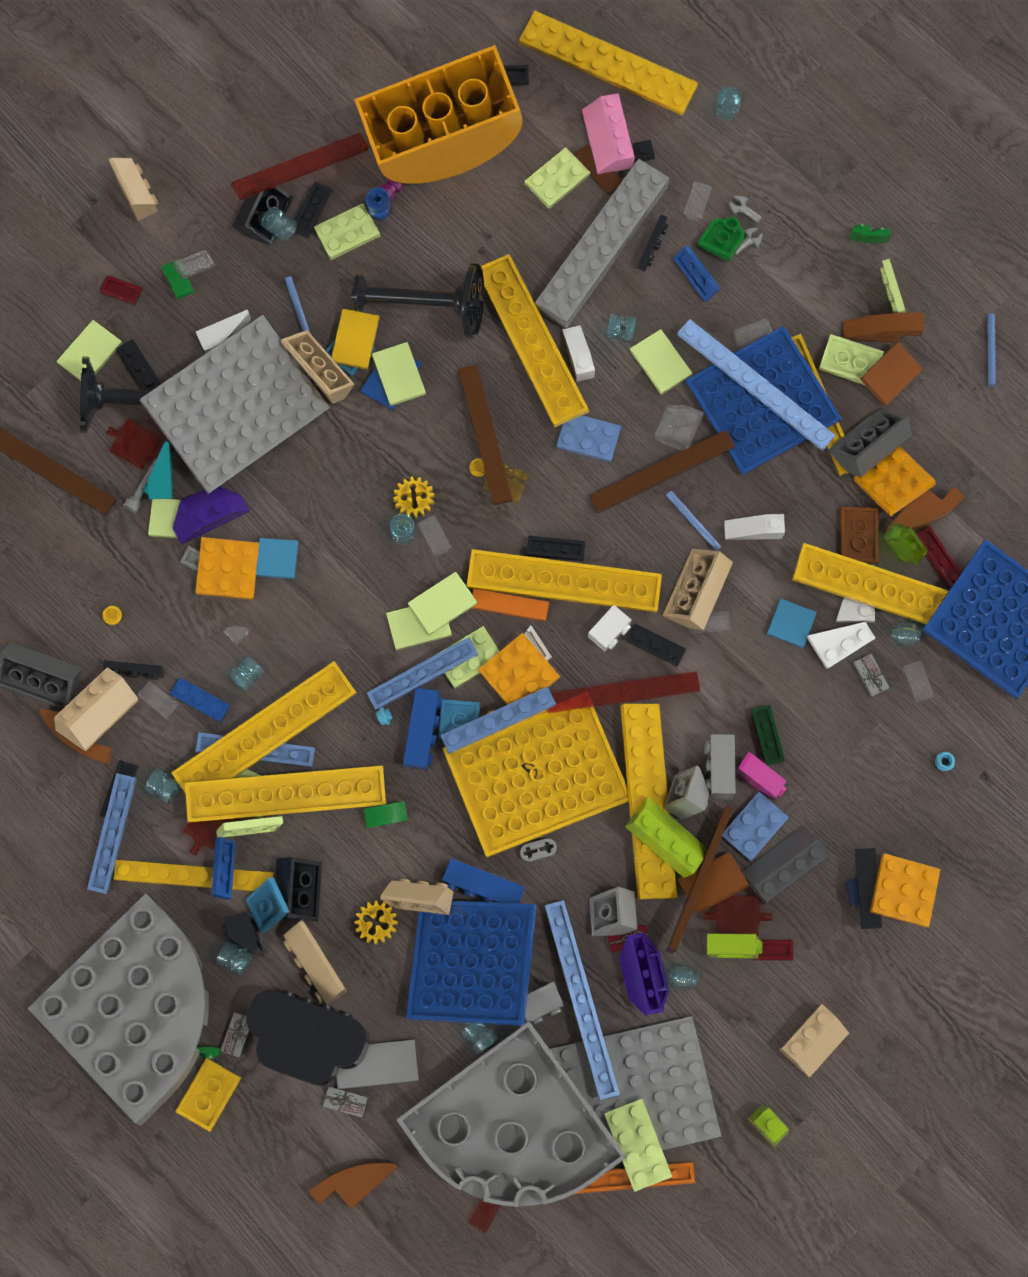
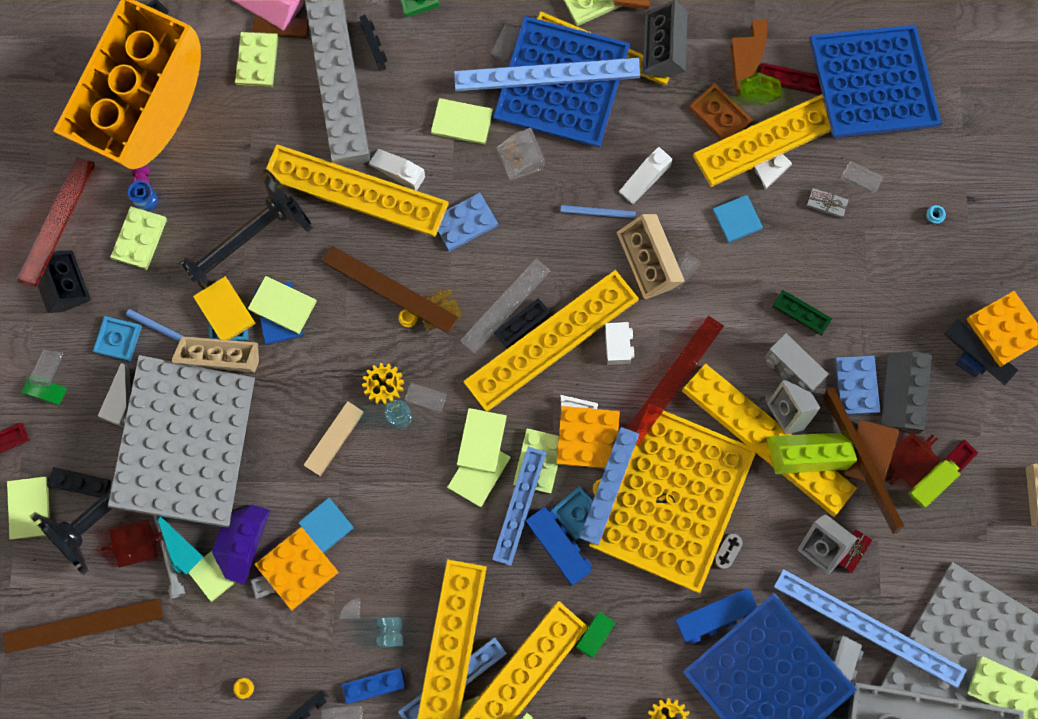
camera: 40 degrees left, 0 degrees up
(262, 290) = (117, 338): none -> dark azure tile
(279, 223) = (82, 278): clear light blue wheel -> none
(312, 209) = (96, 246): black plate -> none
(342, 503) = (333, 438): none -> tan tile
(384, 716) = (522, 563): medium azure plate -> none
(418, 896) = (681, 670): tan slope -> none
(510, 605) = (531, 394): orange tile -> none
(556, 524) = (505, 306): none -> clear plate
(615, 324) = (404, 125): clear light blue wheel -> none
(644, 974) = (893, 567): dark purple wedge -> none
(655, 644) = (660, 324): black plate -> none
(662, 471) = (542, 197): reddish brown tile -> none
(684, 976) = (919, 539): clear light blue head -> none
(696, 273) = (425, 36): blue plate -> none
(761, 776) = (828, 345): dark pink slope -> none
(840, 642) = (784, 201): white wing -> none
(895, 481) = (710, 53): light orange plate -> none
(906, 635) = (823, 152): clear light blue head -> none

